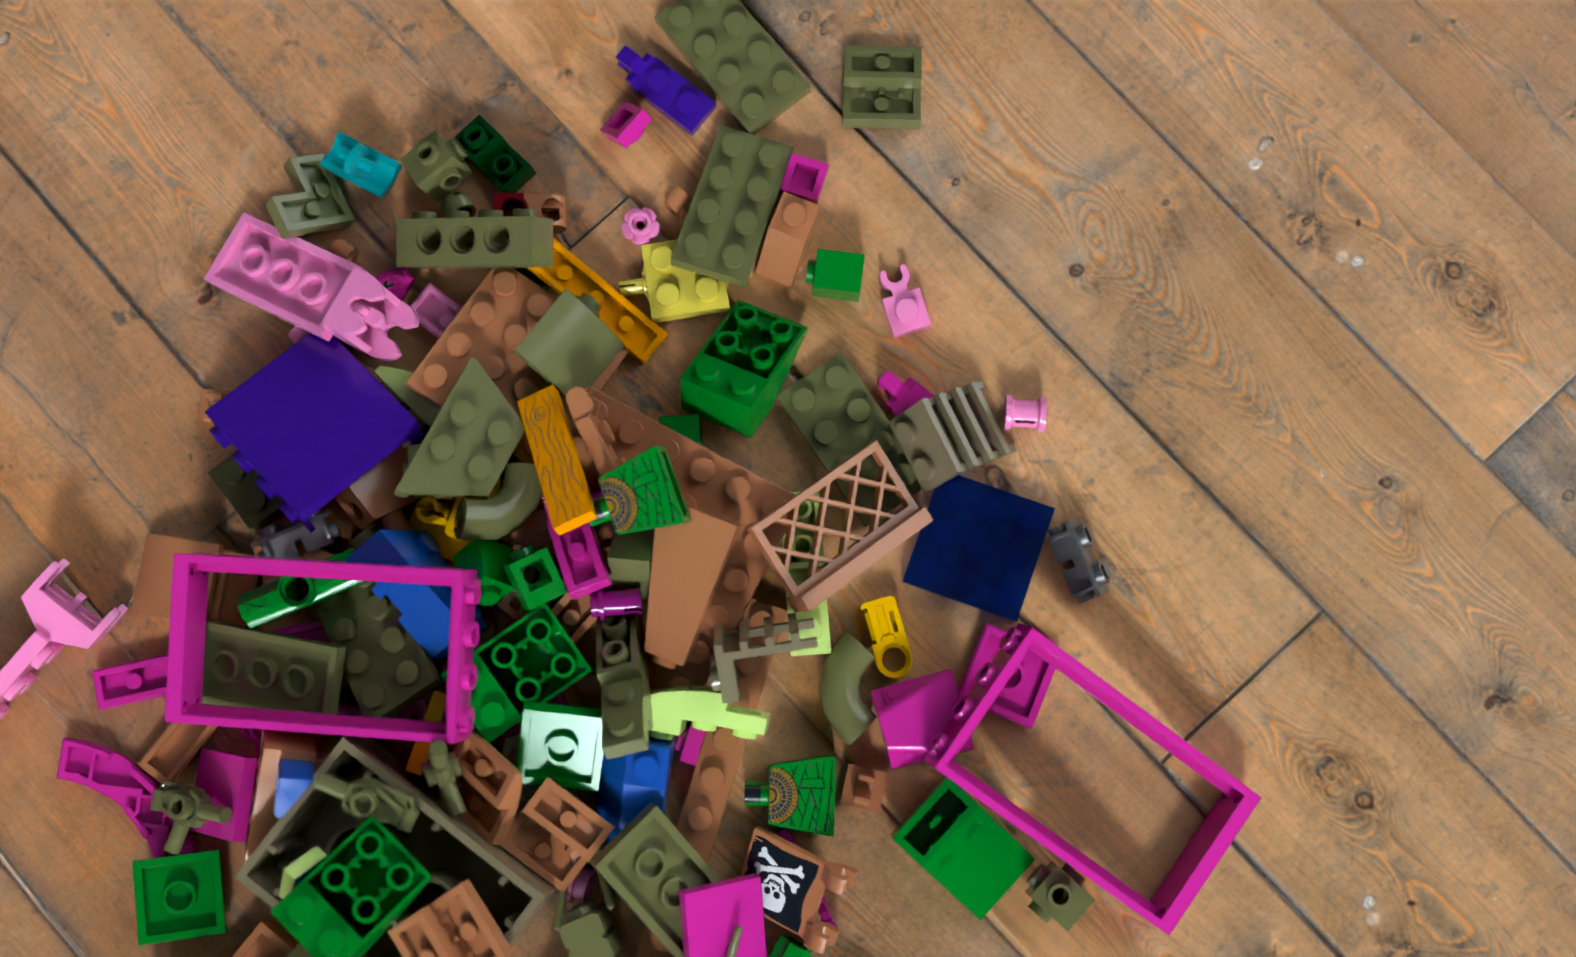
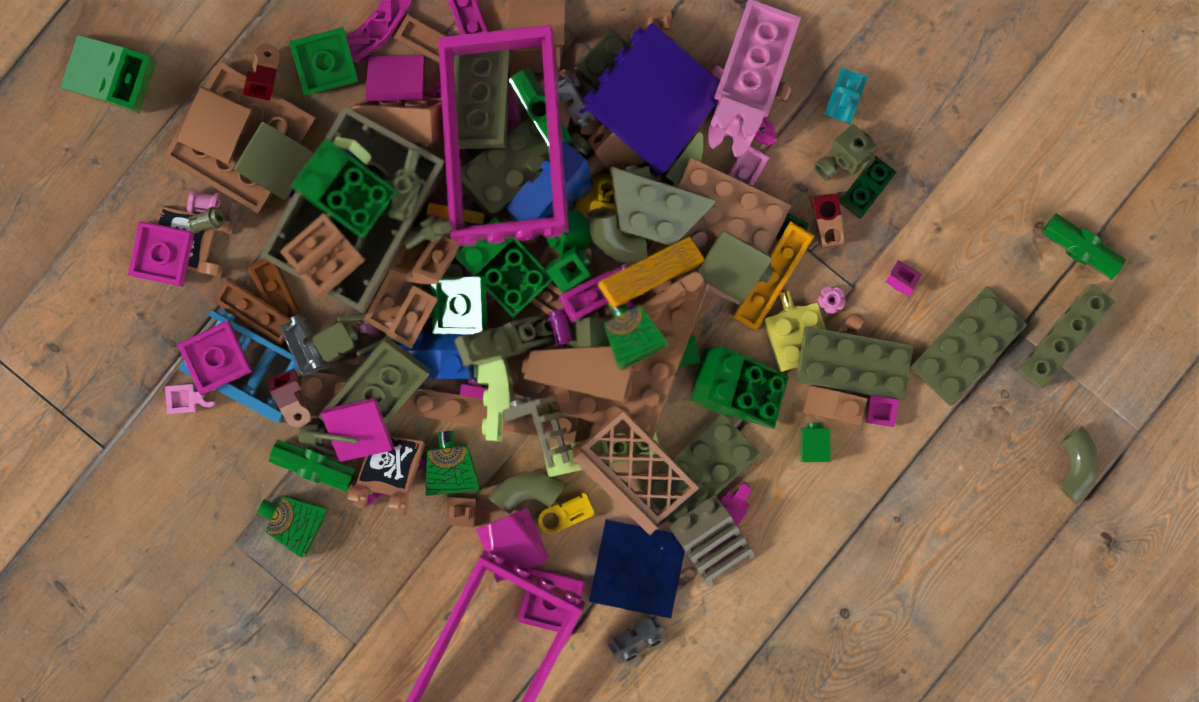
camera: 80 degrees right, 5 degrees up
(188, 808) = (383, 57): olive piece -> none
(291, 782) = (409, 131): slope -> none
(316, 204) = (815, 70): olive plate -> none
(528, 244) = (790, 149): olive brick -> none
(666, 90) = (934, 303): dark purple hinge -> none
(882, 87) = (958, 457): olive slope -> none
(904, 308) = (798, 495): bright pink plate -> none
(962, 847) = (430, 584): green slope -> none
(1024, 413) = (734, 589): bright pink bush -> none
(1070, 902) = (401, 660): olive brick -> none

